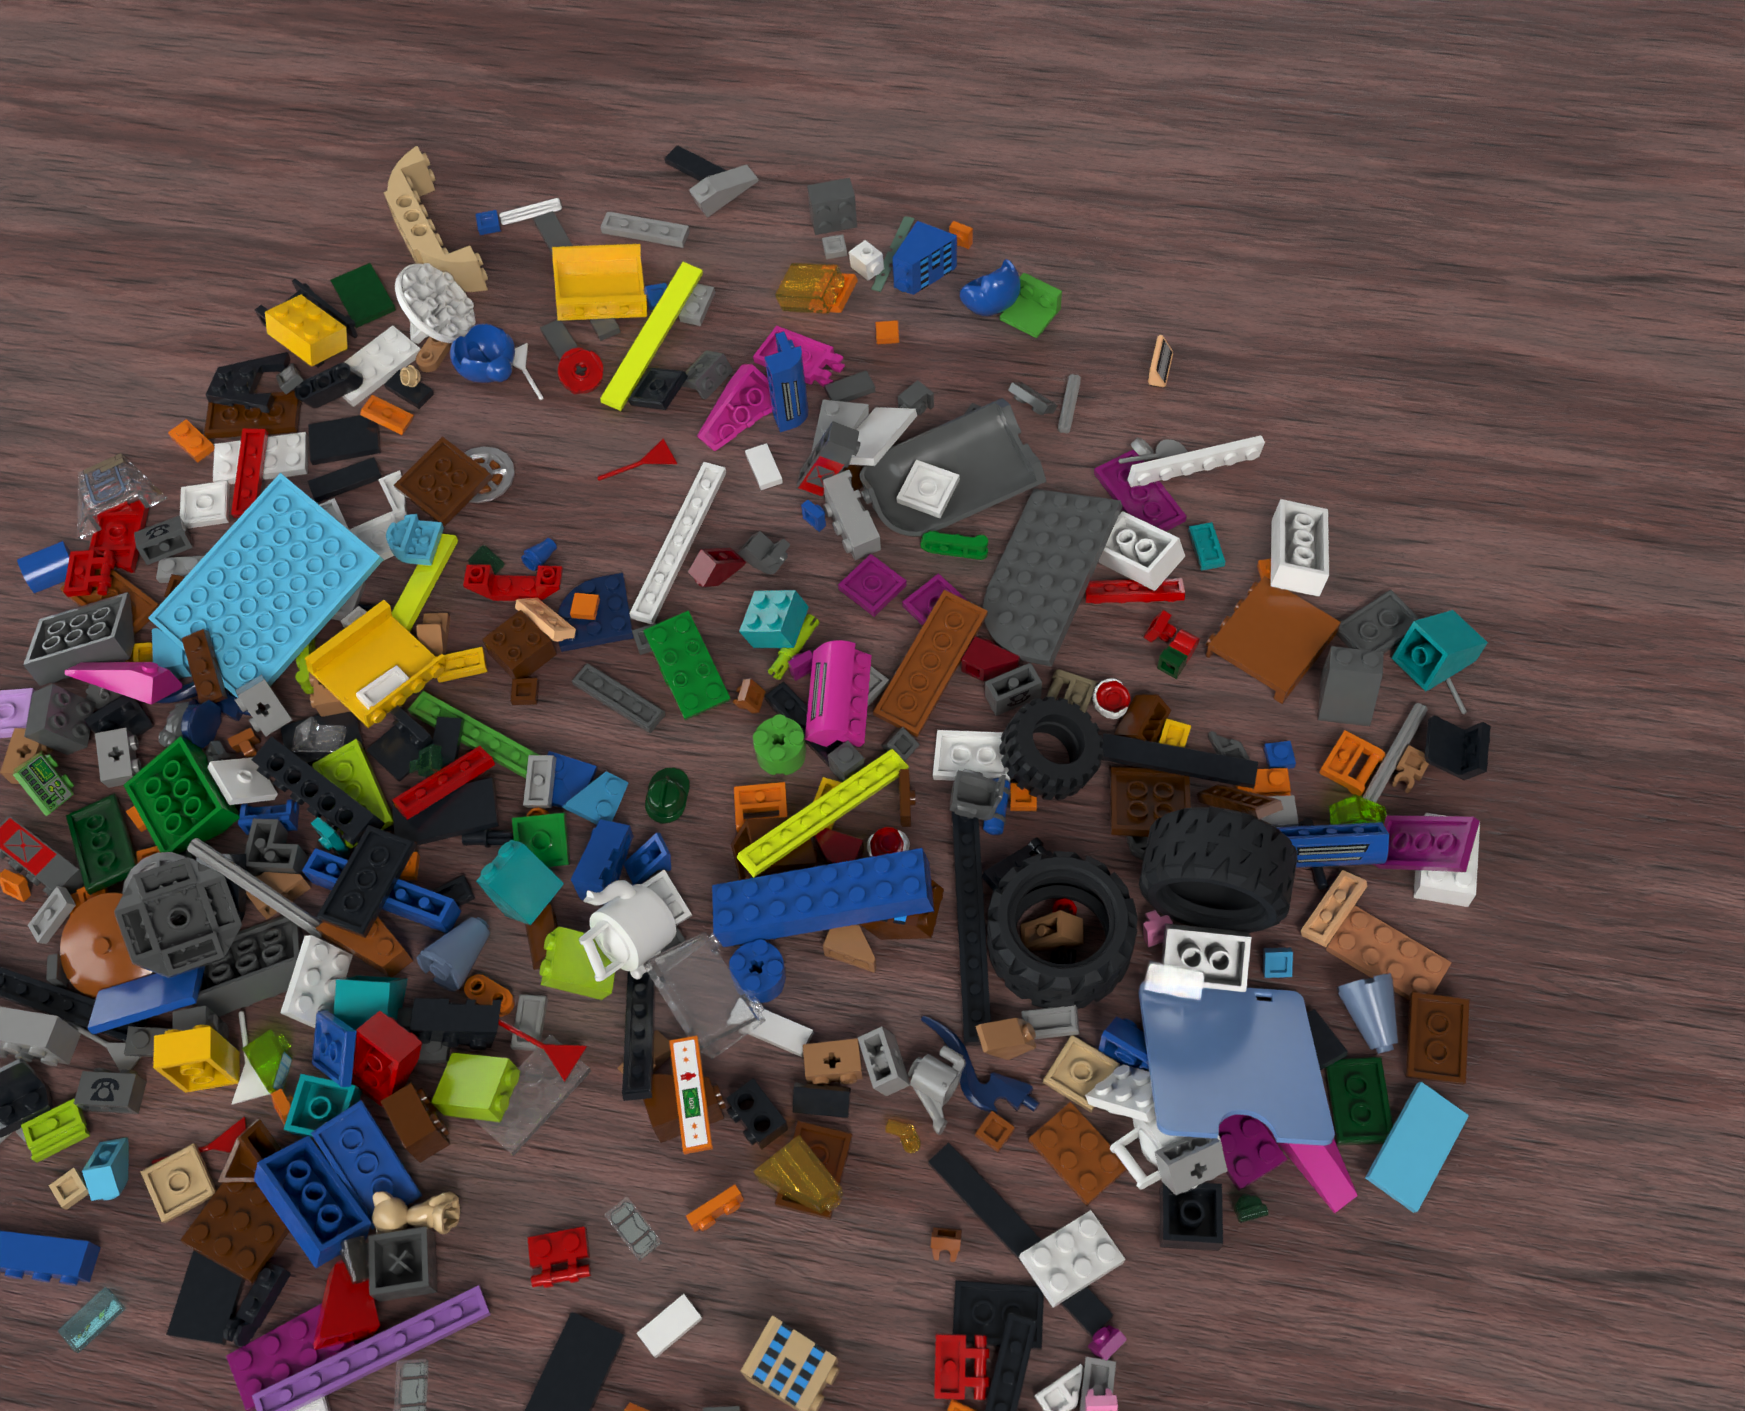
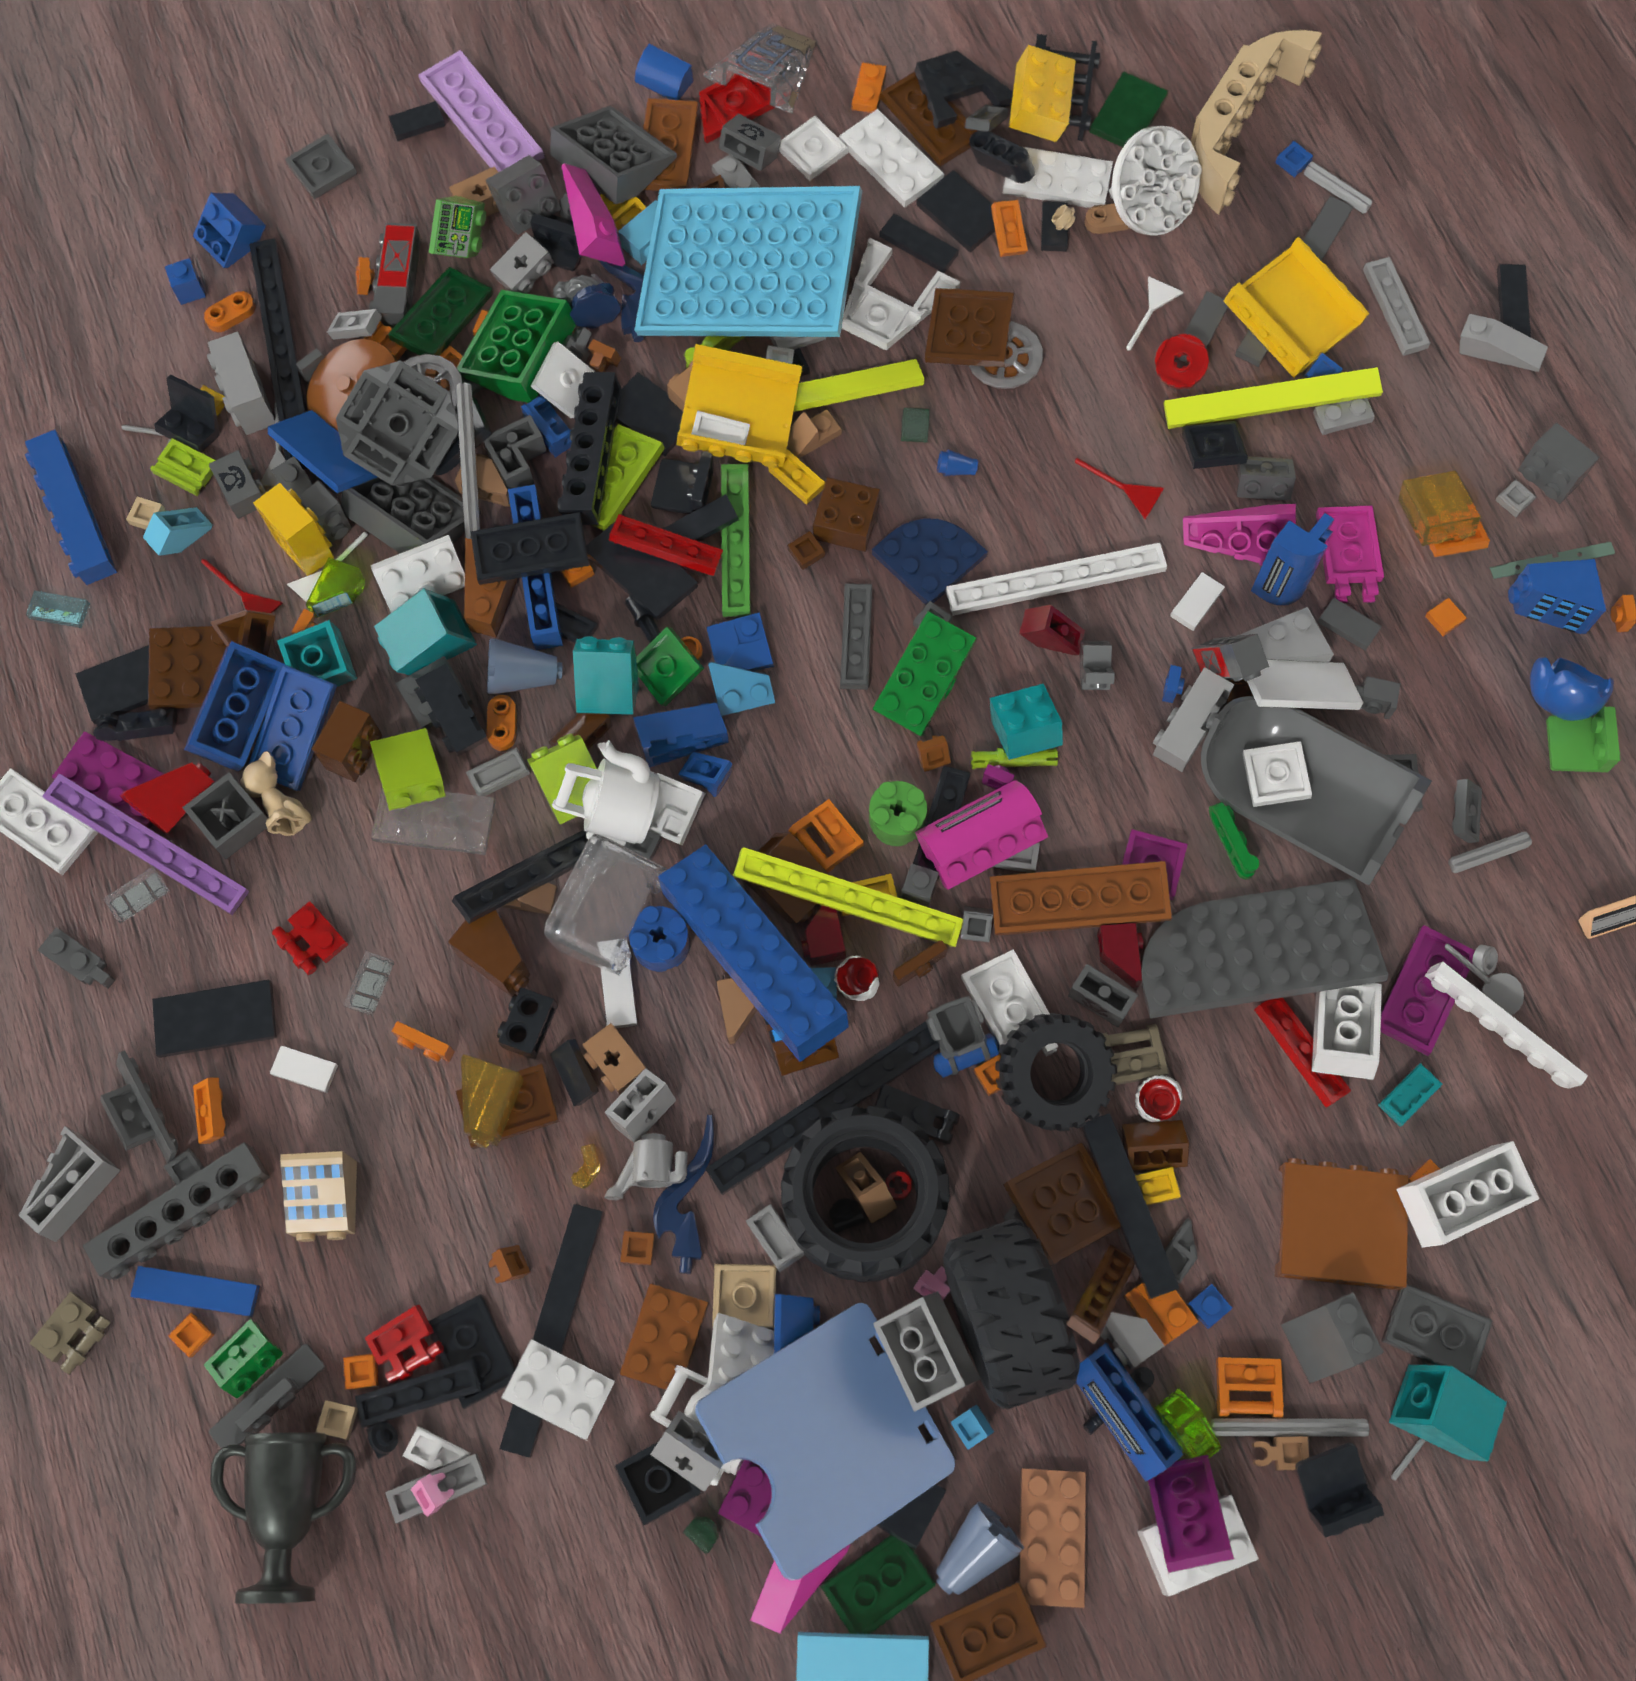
camera: 55 degrees right, 10 degrees up
(81, 573) = (672, 102): red plate -> none
(179, 1183) = (197, 592): tan tile -> none
(204, 667) = (644, 269): reddish brown plate -> none
(249, 469) = (867, 157): red plate -> none
(259, 691) = (650, 333): light grey brick -> none
(313, 737) = (645, 411): clear slope -> none
(329, 838) = (553, 488): teal plate -> none
(334, 1048) = (366, 630): blue tile -> none
(356, 1258) = (205, 774): clear smoke cone -> none
(383, 1057) = (384, 675): red slope -> none
(414, 539) = (891, 347): medium azure slope -> none
(428, 761) = (677, 518): clear green plate -> none
(483, 354) = (1133, 263): blue piece -> none
(510, 588) = (904, 462): red slope -> none
(539, 781) = (720, 625): light grey plate -> none
(546, 619) = (887, 516): light nougat plate -> none
(562, 1056) = (478, 822): red piece -> none
(585, 606) = (924, 542): orange tile -> none
(667, 795) = (787, 745): dark green piece -> none
(690, 1095) = (494, 954): tile -> none
(866, 260) = (1518, 540): white brick -> none
(872, 585) = (1132, 789): magenta plate -> none
(1007, 1038) = (727, 1204): medium nougat slope -> none
(1106, 1342) = (499, 1465): magenta plate -> none
(1160, 628) = (1275, 1101): red tile -> none
(1174, 980) = (879, 1334): clear plate -> none
(1178, 653) = (1259, 1136): leg -> none
(1334, 908) = (1068, 1453): light nougat plate -> none

